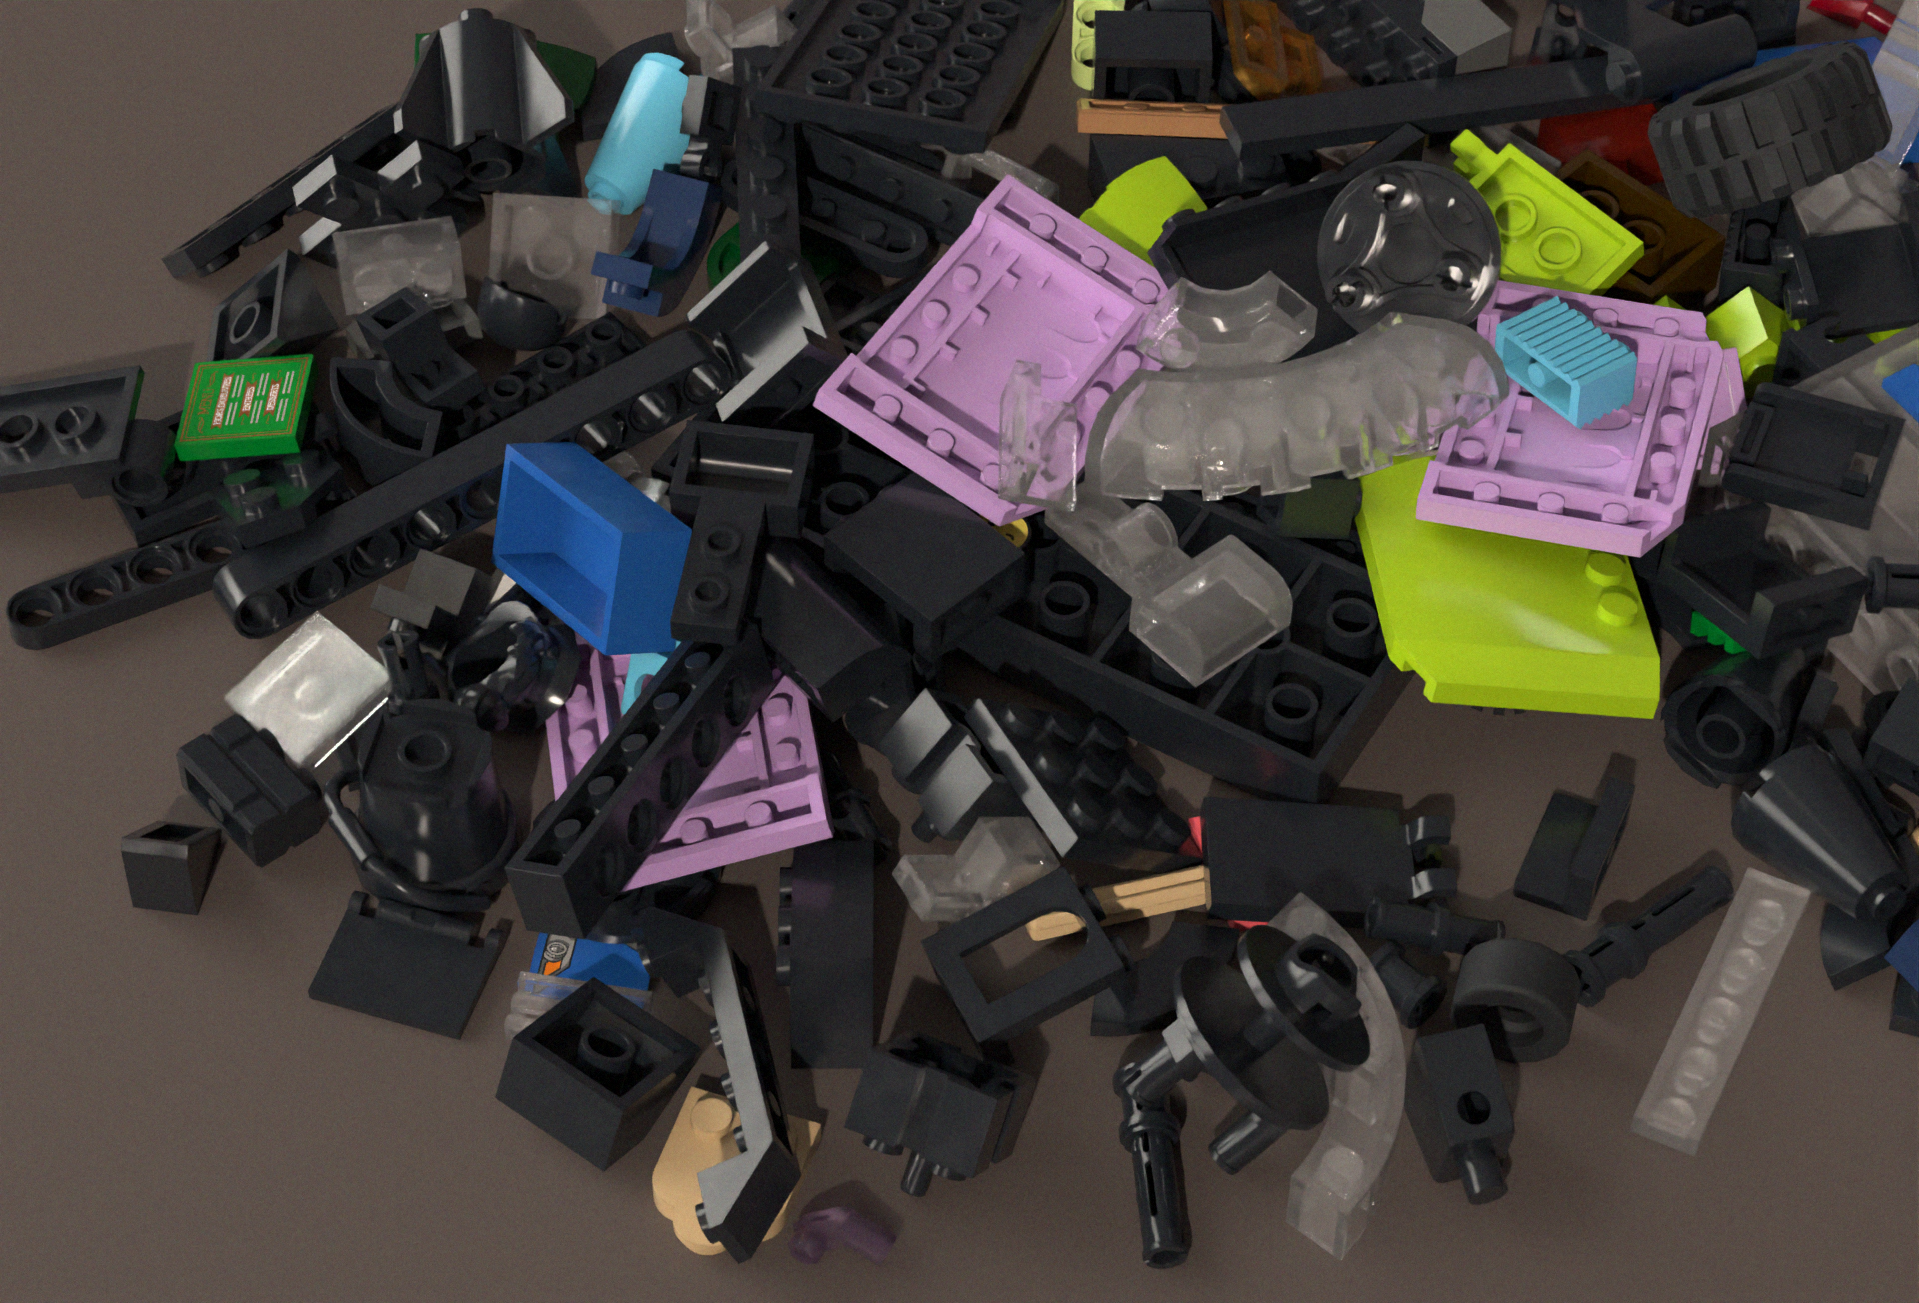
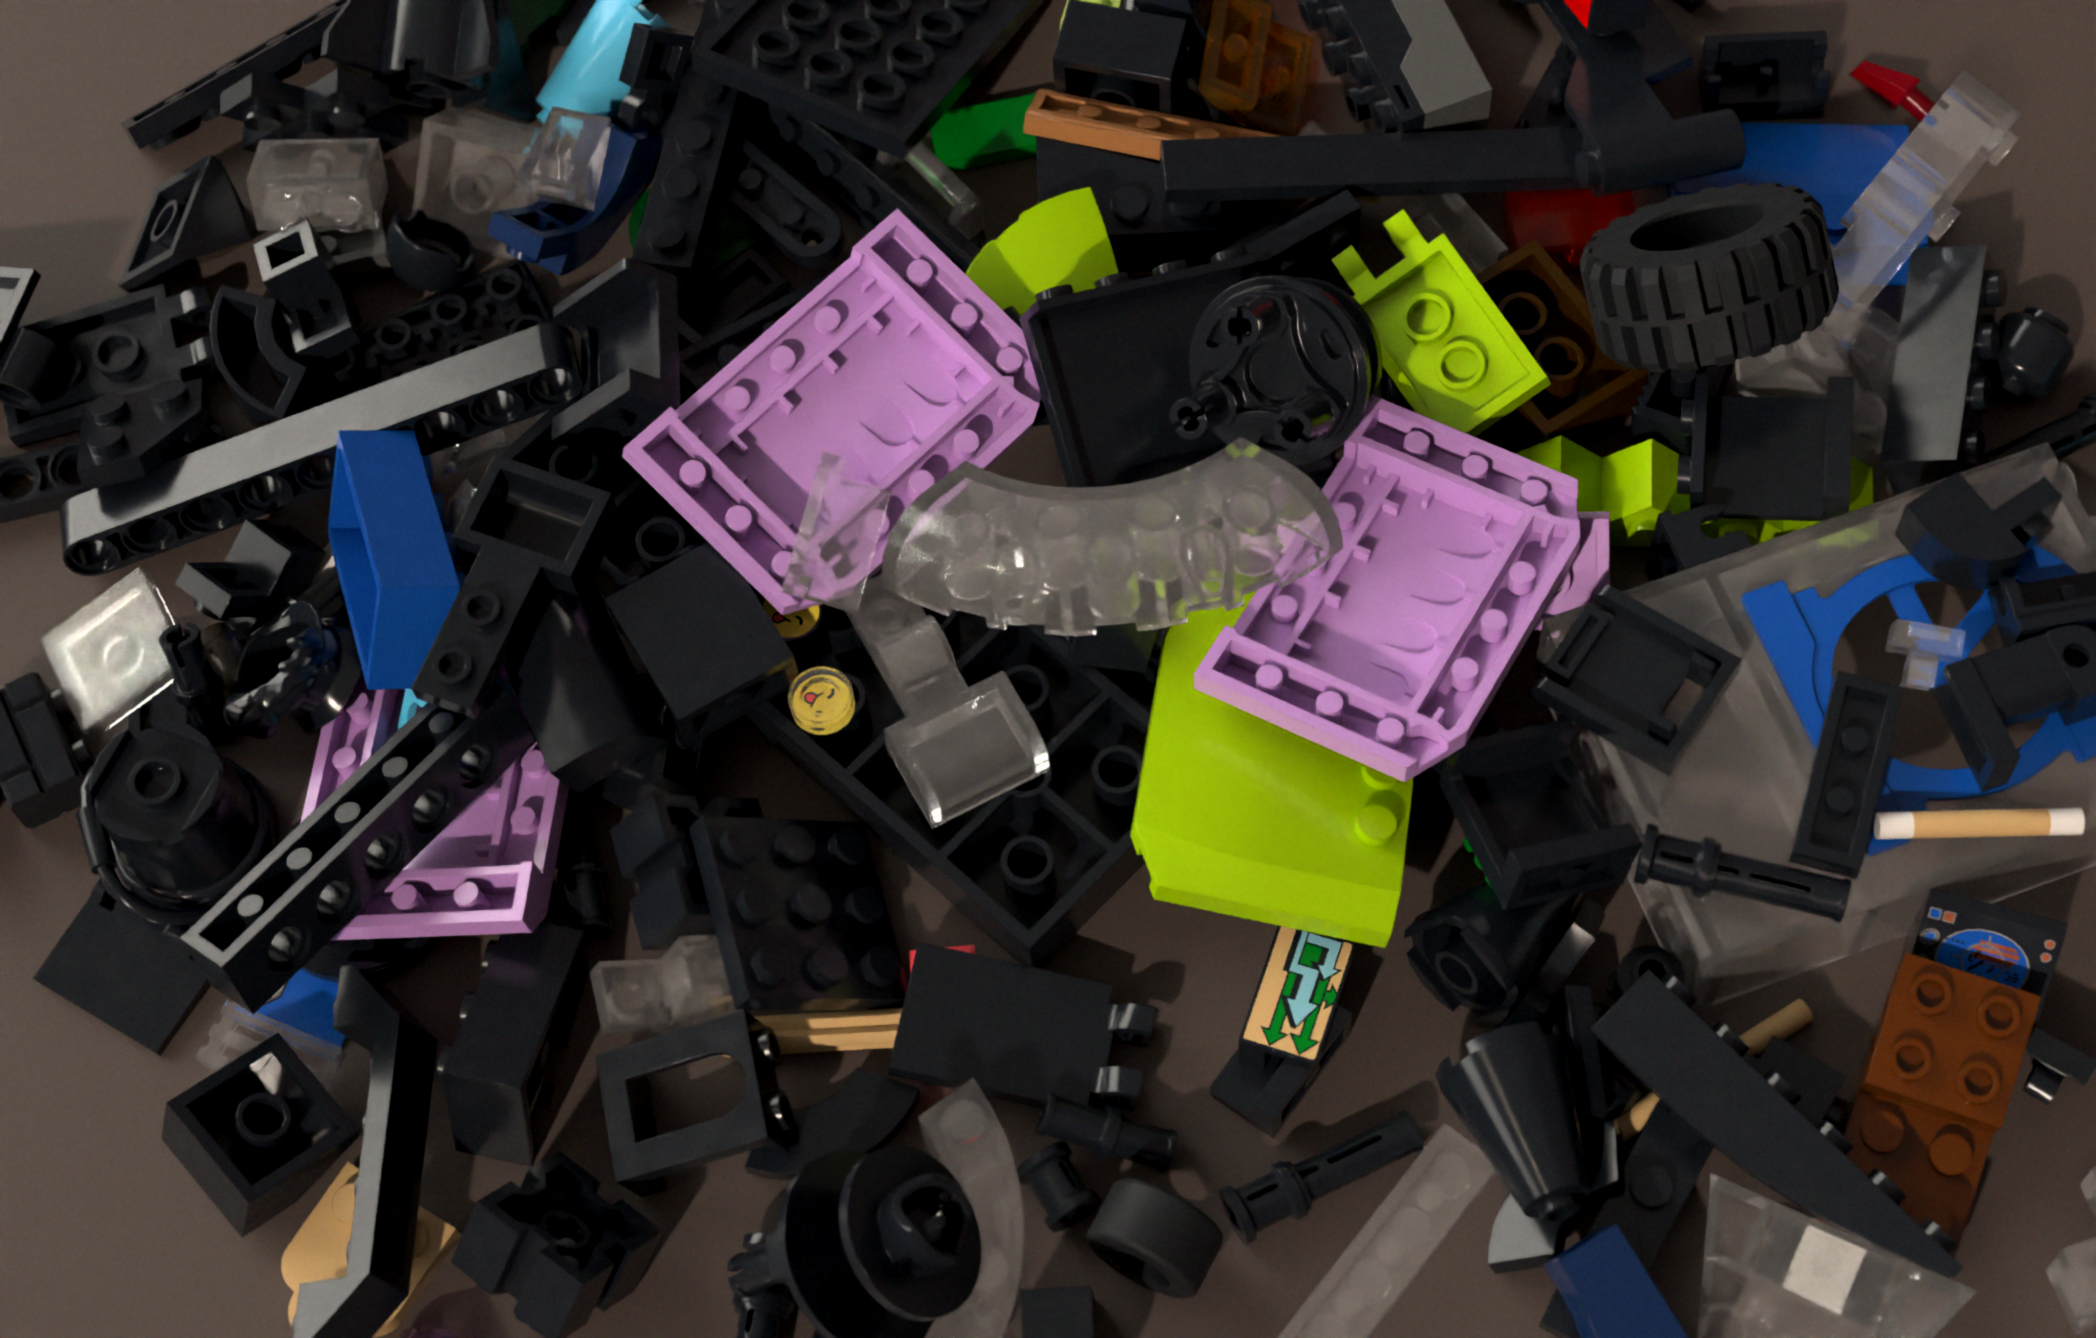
camera: 20 degrees right, 15 degrees up
(247, 407) = (136, 322): green tile -> none
(648, 209) = (566, 159): none -> clear slope
(1043, 147) = (983, 134): none -> green tile
(1051, 602) = (821, 700): none -> clear tile
(1227, 329) = (1061, 434): clear brick -> none
(1567, 361) = (1409, 523): medium azure brick -> none
(1576, 782) = (1295, 998): none -> panel

